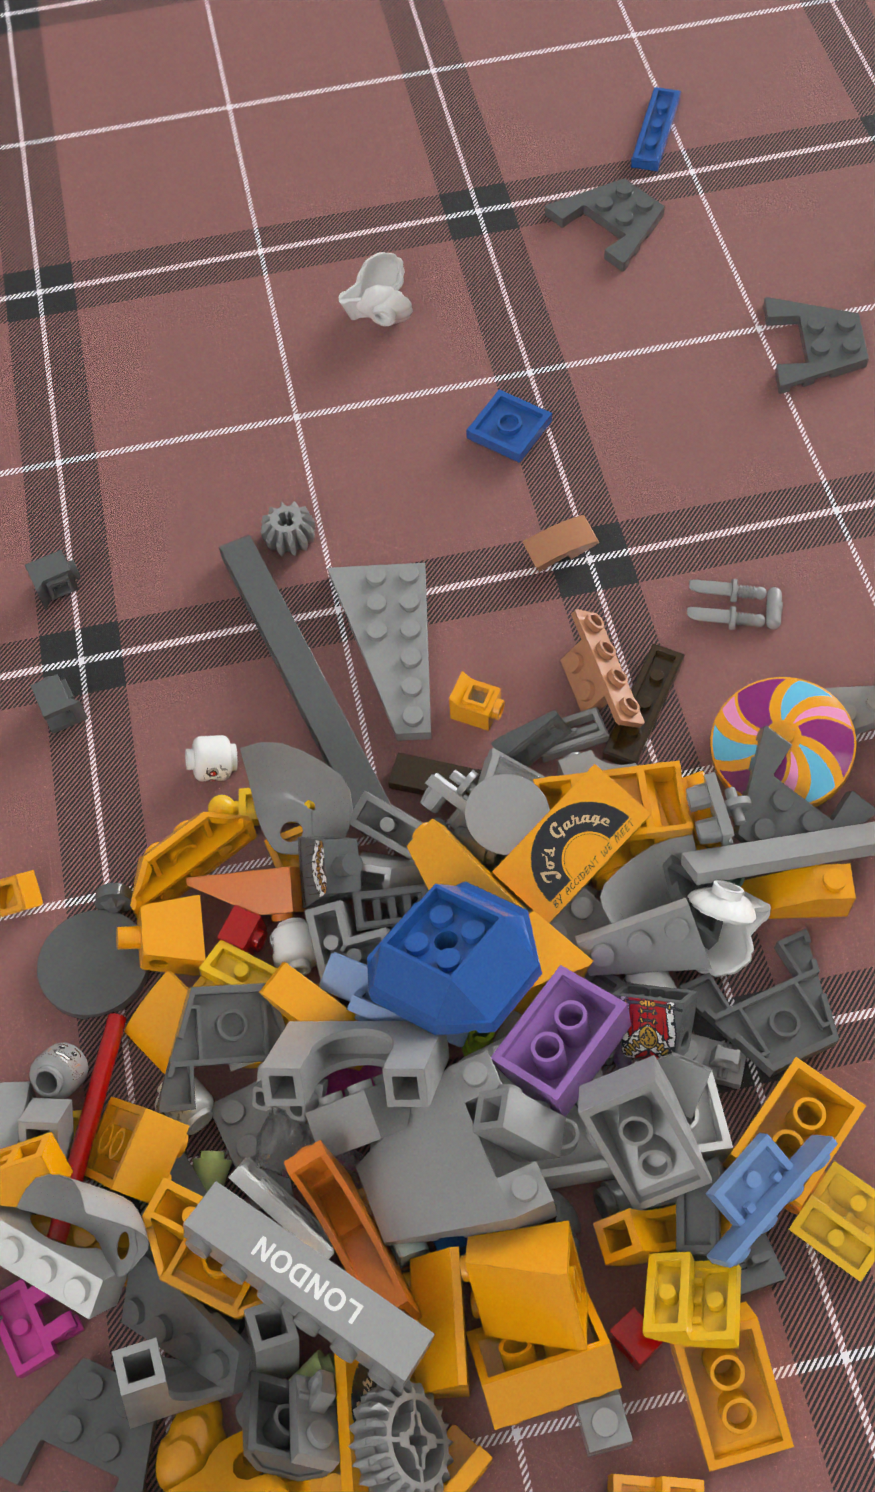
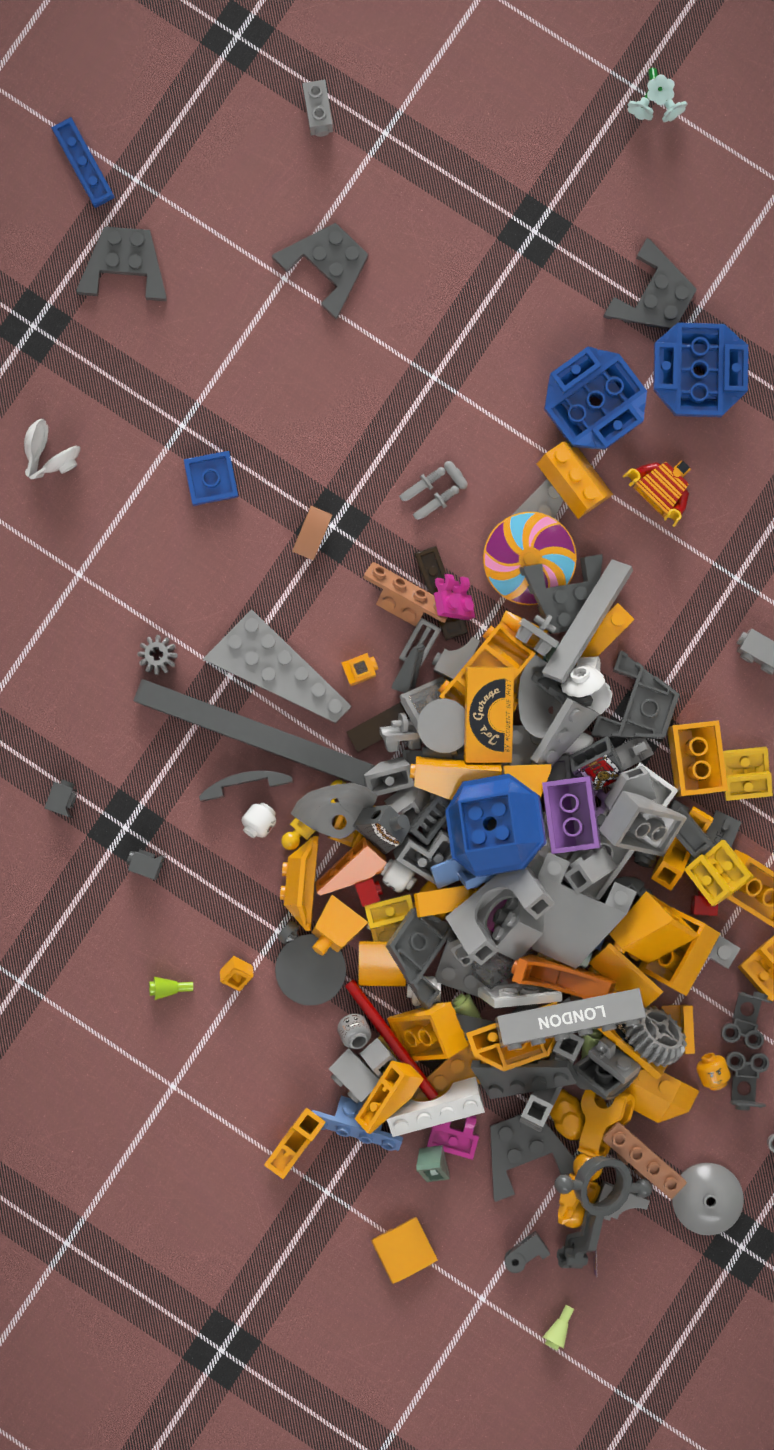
camera: 50 degrees left, 25 degrees up
(93, 1209) = (455, 1069): light grey piece -> none
(207, 693) = (216, 790): none -> dark grey slope
(646, 716) = (455, 603): none -> dark pink plate
(759, 1188) = (708, 802): medium blue bracket -> none

